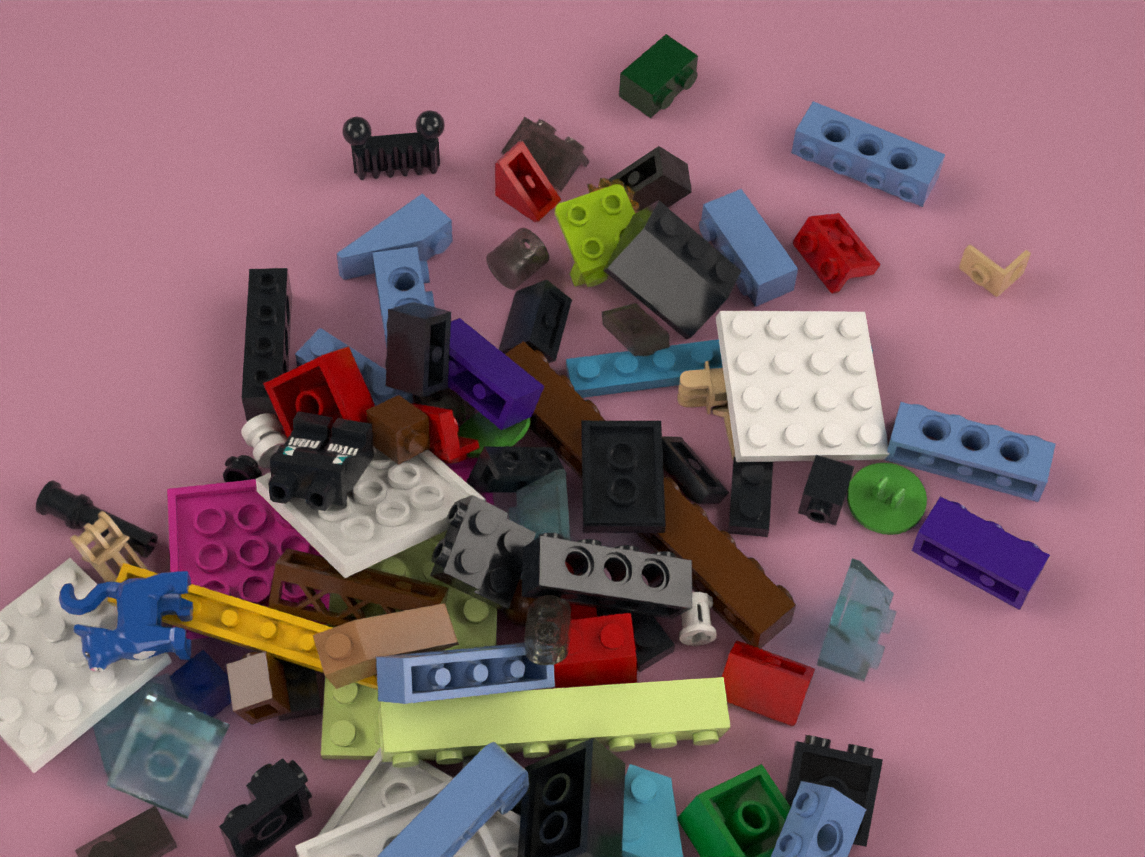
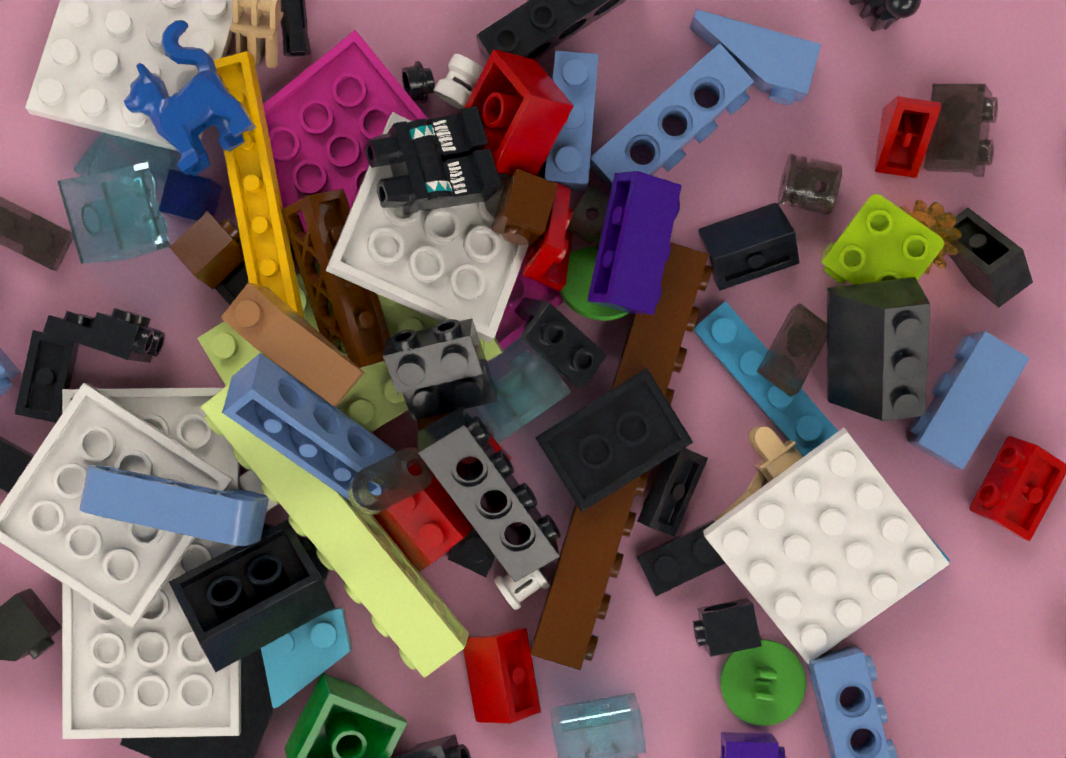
camera: 65 degrees right, 30 degrees up
(418, 348) = (610, 174): black brick -> none

